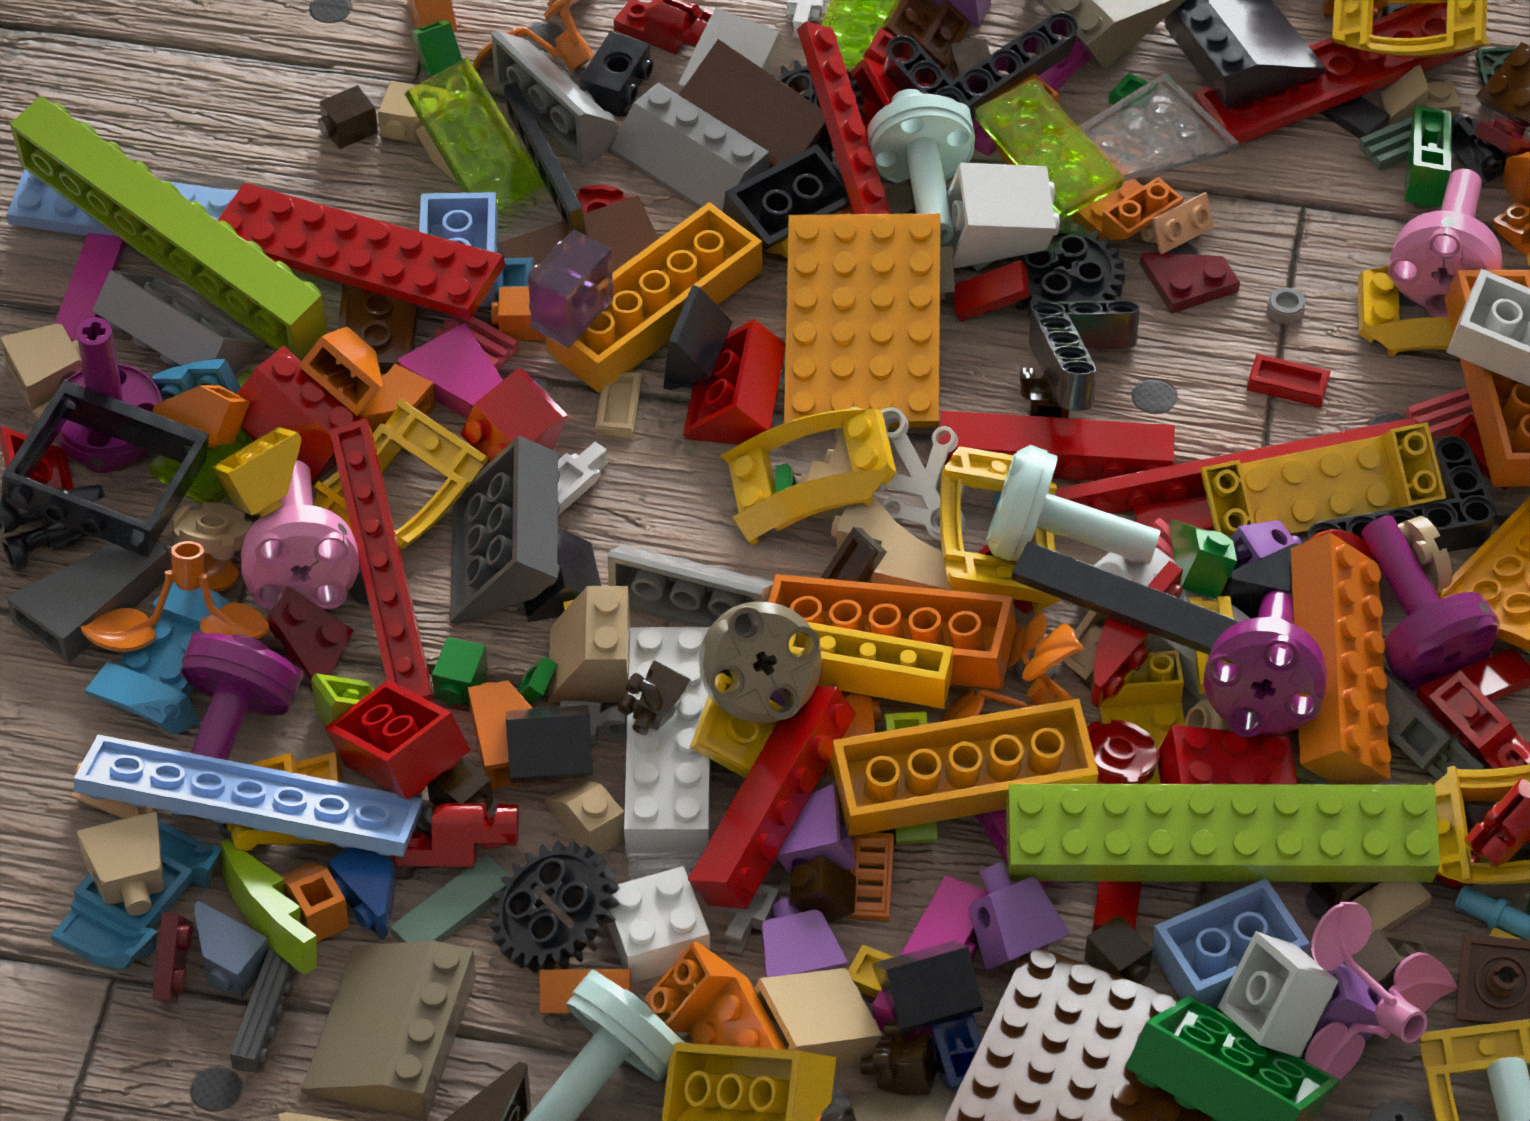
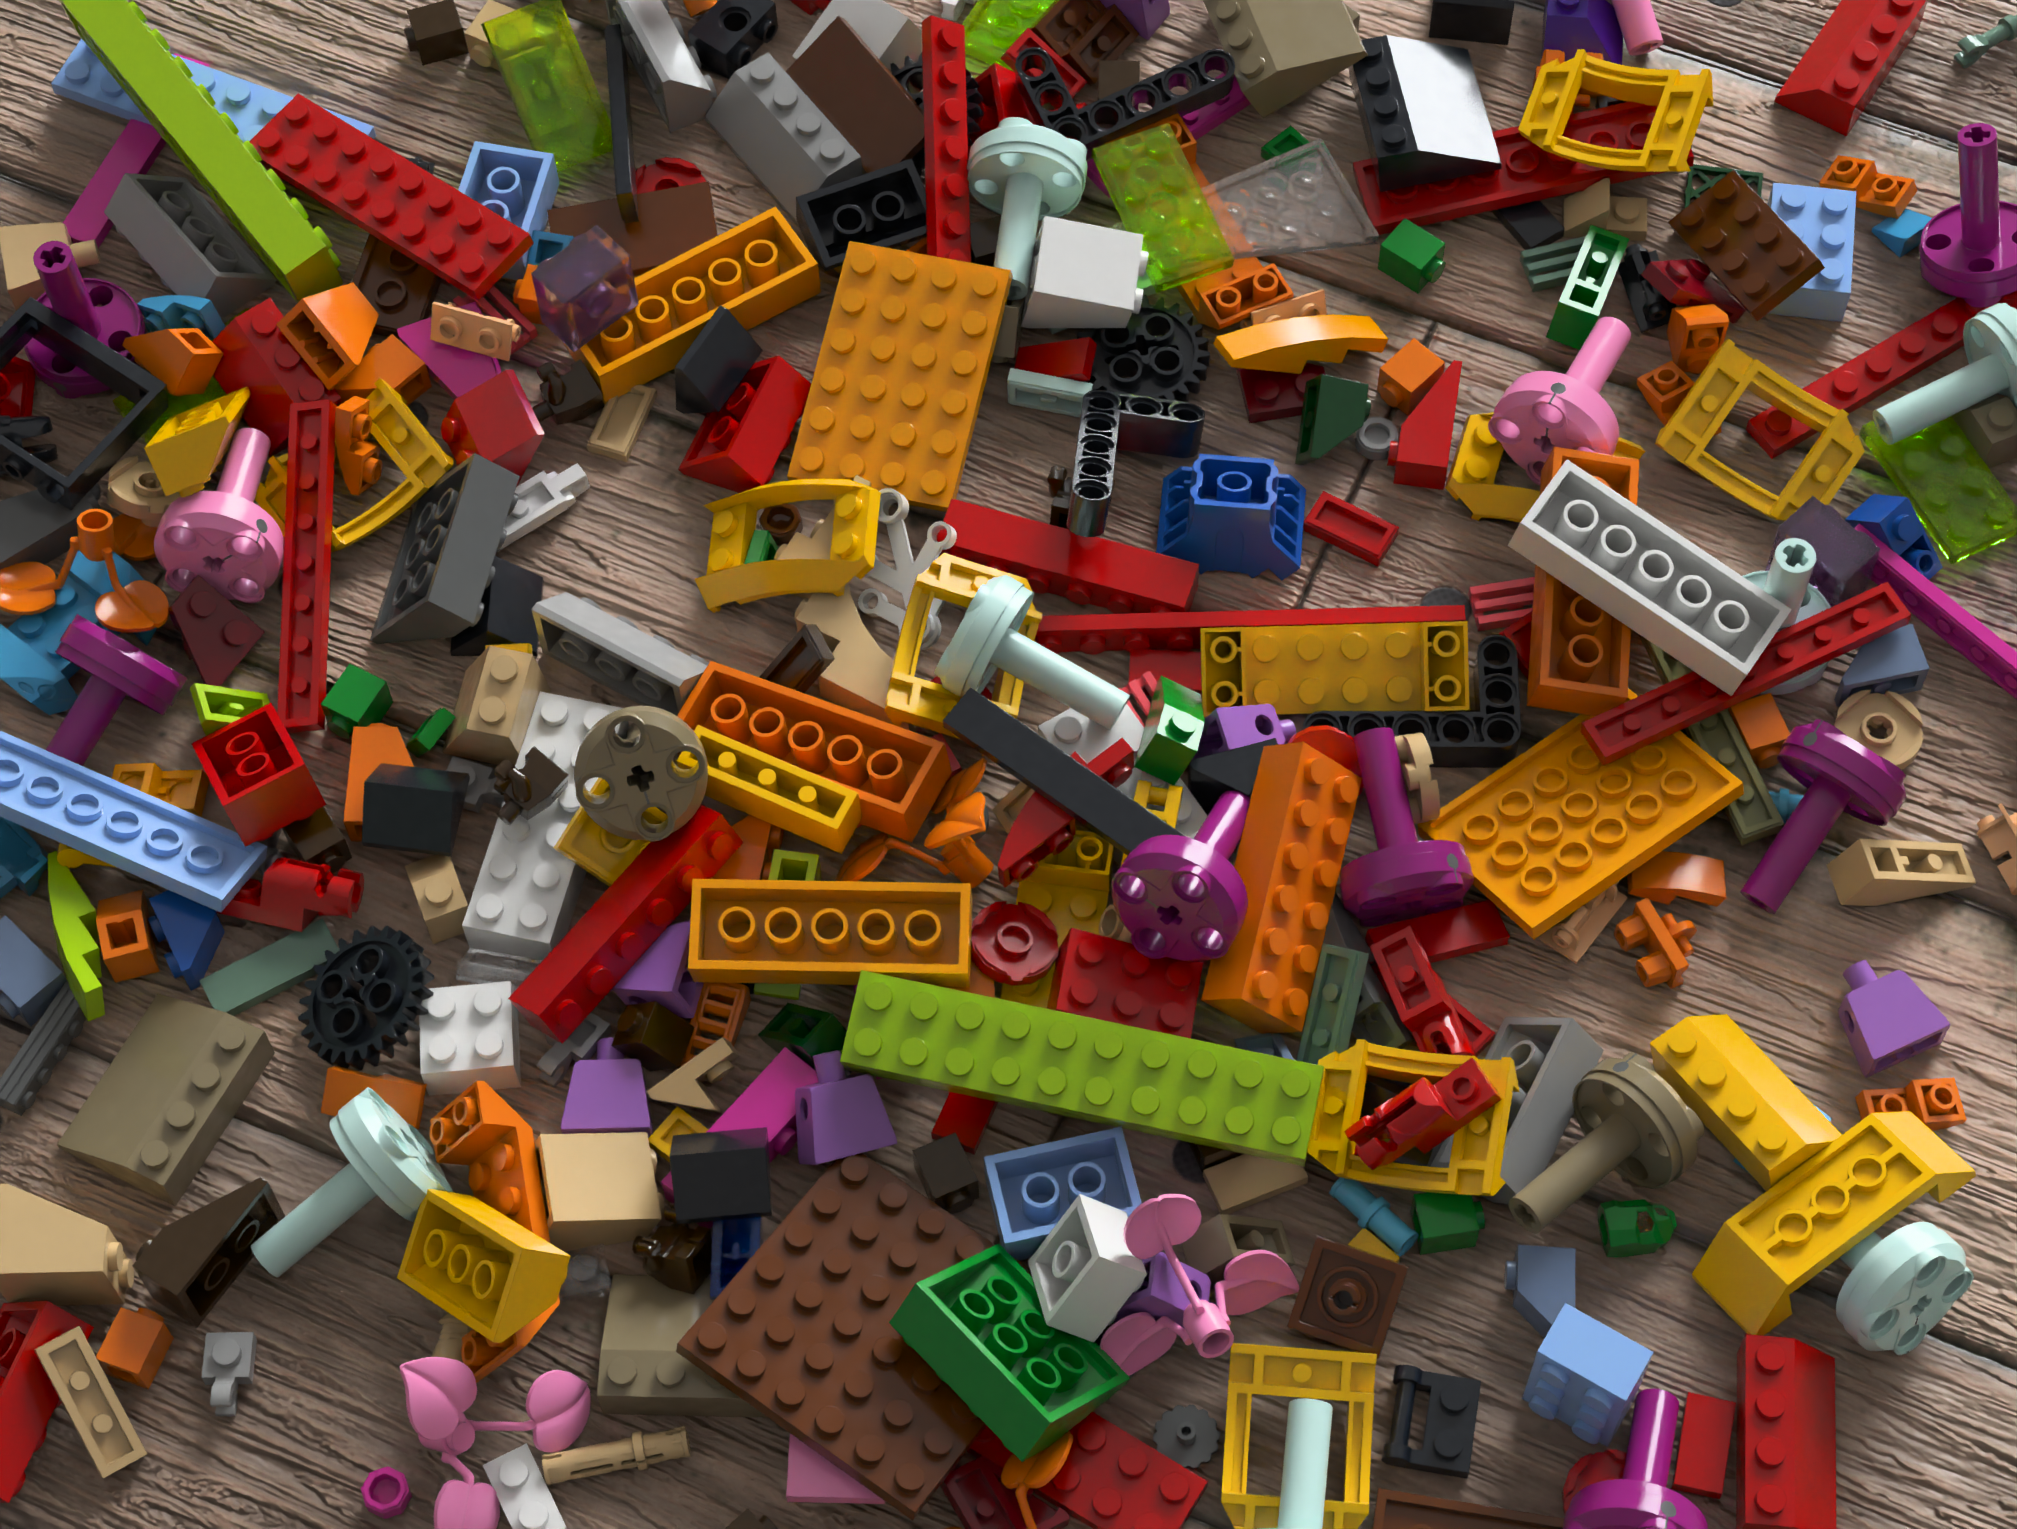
camera: 15 degrees right, 10 degrees up
(396, 468) = (356, 456): none -> orange slope
(473, 344) = (473, 331): none -> light nougat hinge
(571, 387) = (567, 396): none -> dark brown piece
(796, 455) = (781, 522): none -> reddish brown tile
(865, 924) = (685, 1084): none -> tan slope
(957, 859) = (804, 1032): none -> dark green slope
(993, 316) = (1046, 392): none -> light aqua tile
(1187, 384) = (1233, 516): none -> blue slope
(1196, 236) = (1292, 341): none -> light orange slope
(1243, 290) = (1330, 414): none -> dark green slope
(1269, 156) = (1412, 256): none -> green brick
(1301, 250) = (1409, 376): none -> orange brick
(1333, 298) = (1426, 435): none -> red slope
(1412, 741) = (1332, 1003): none -> sand green tile

